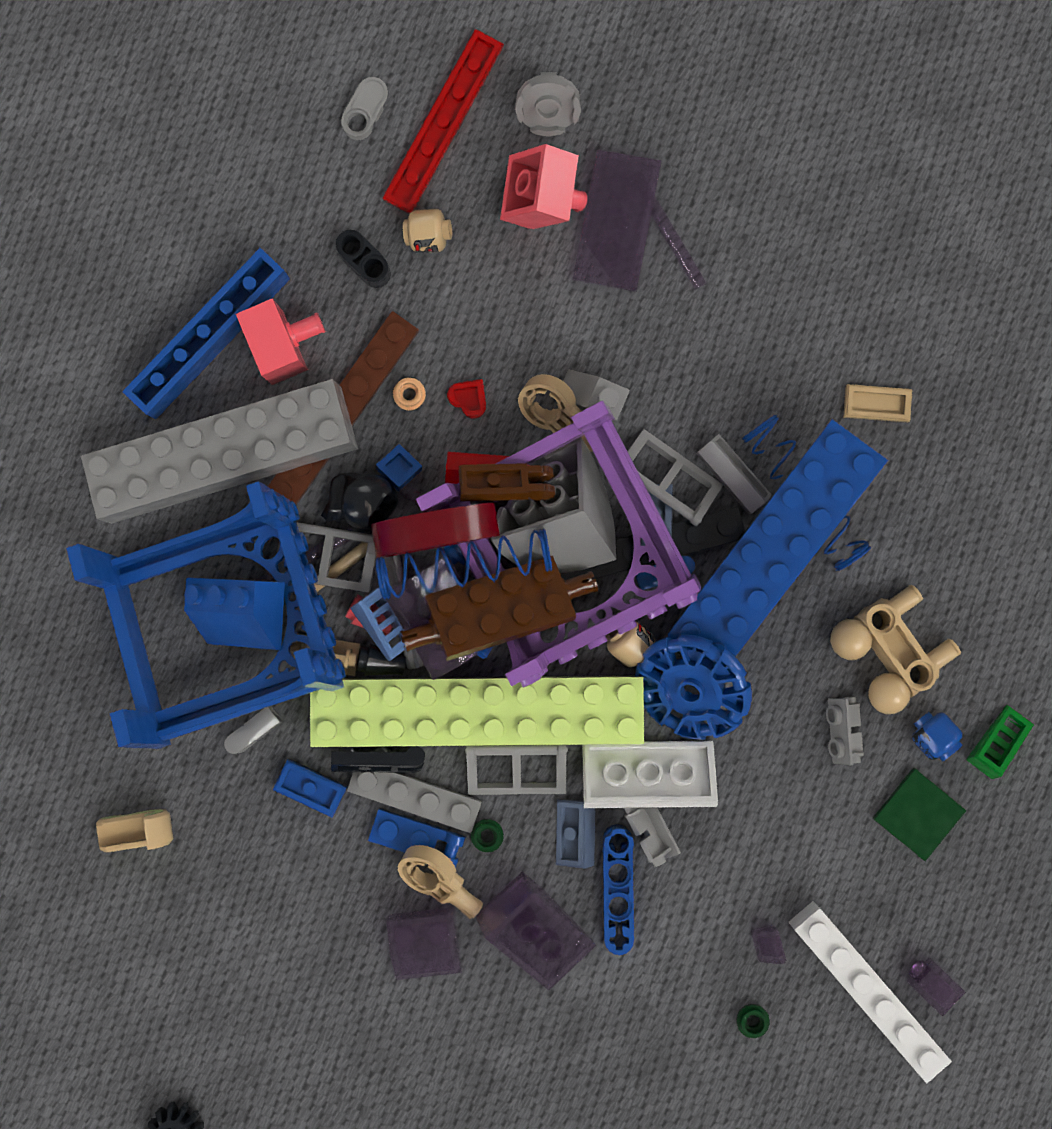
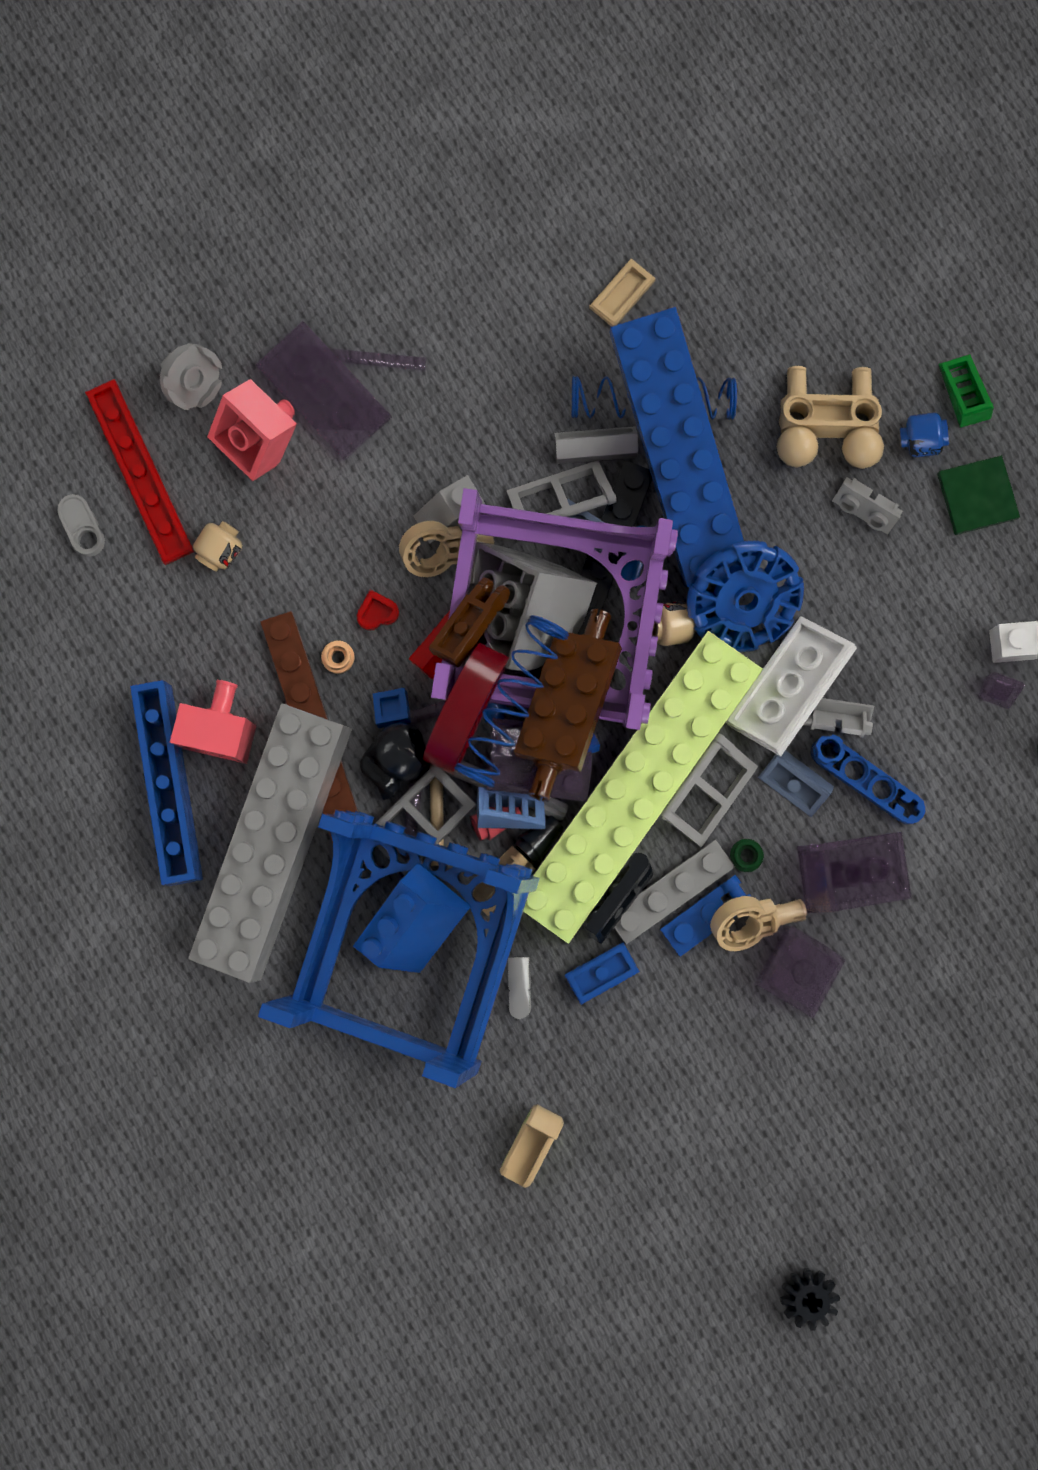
camera: 50 degrees left, 5 degrees down
(363, 259) = (201, 616): black beam -> none

